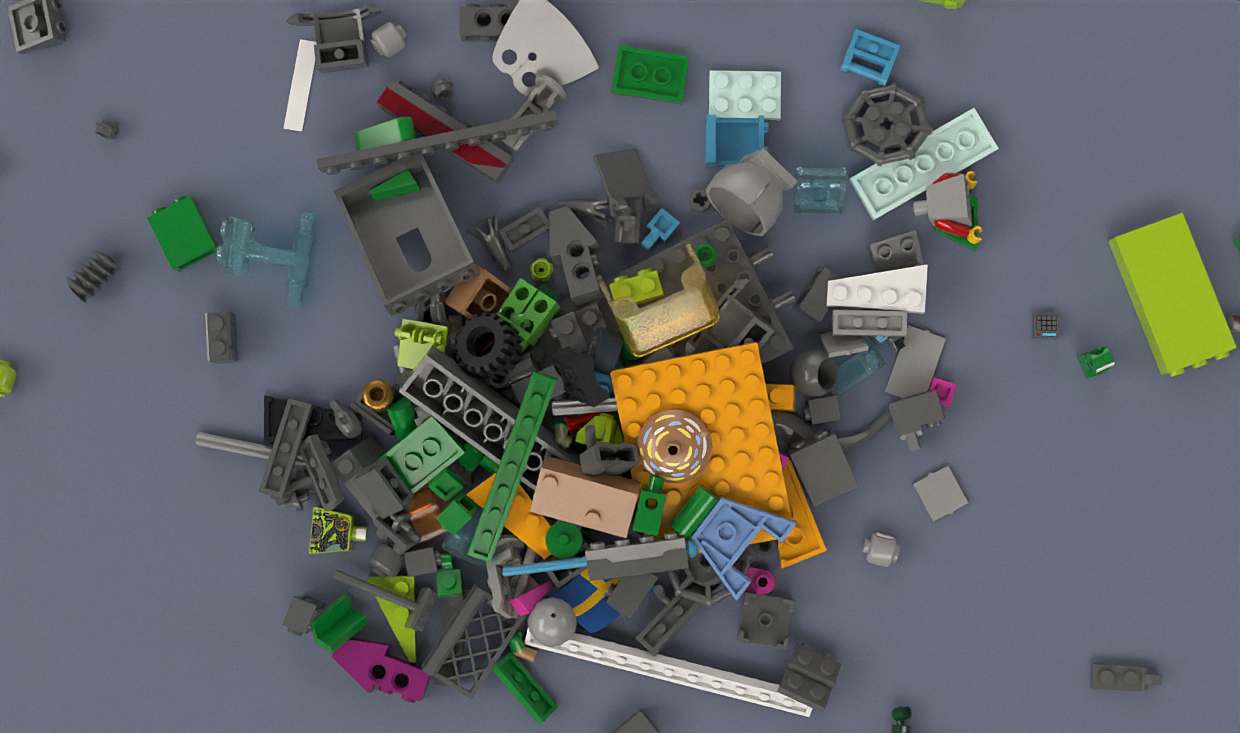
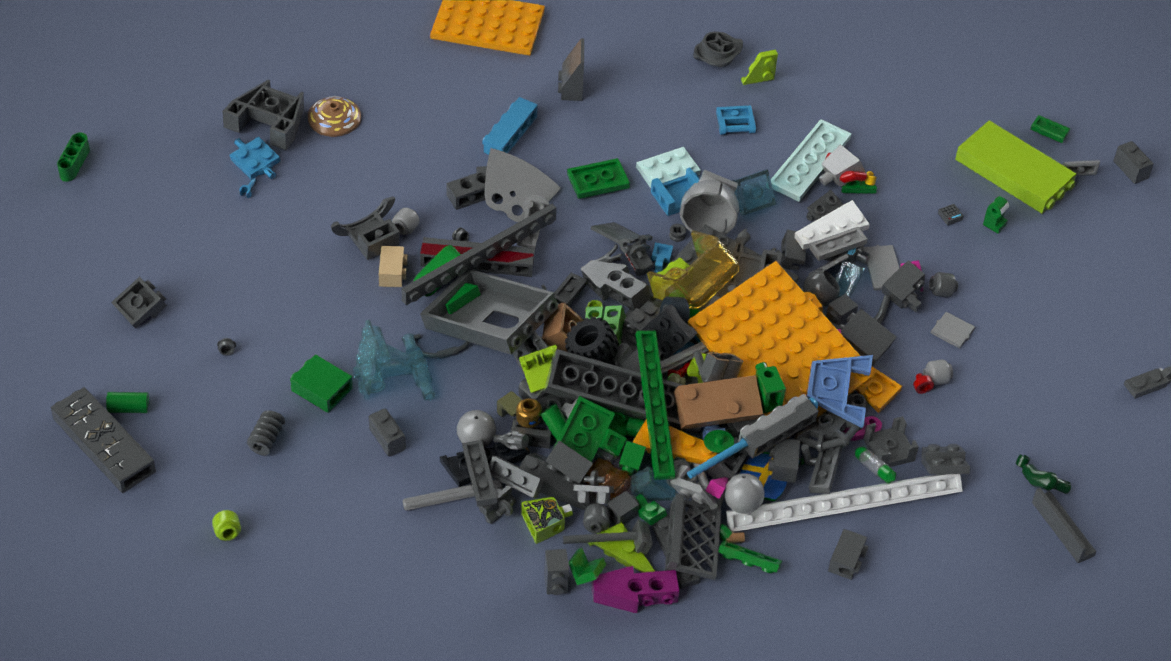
camera: 35 degrees left, 35 degrees down
(300, 86) = (355, 273): white sticker -> none
(327, 381) = (476, 426): none -> light grey helmet
(336, 250) = (443, 353): none -> dark grey piece
(341, 100) = (392, 266): none -> tan brick
(373, 367) = (508, 404): none -> olive panel
(676, 429) = (748, 348): medium nougat dish -> none
(694, 511) = (799, 378): green brick -> none
(729, 642) = (875, 464): none -> piece
(854, 557) = (923, 383): none -> red tile
(891, 112) = (765, 145): dark grey plate -> none
(966, 429) = (943, 284): none -> dark grey head

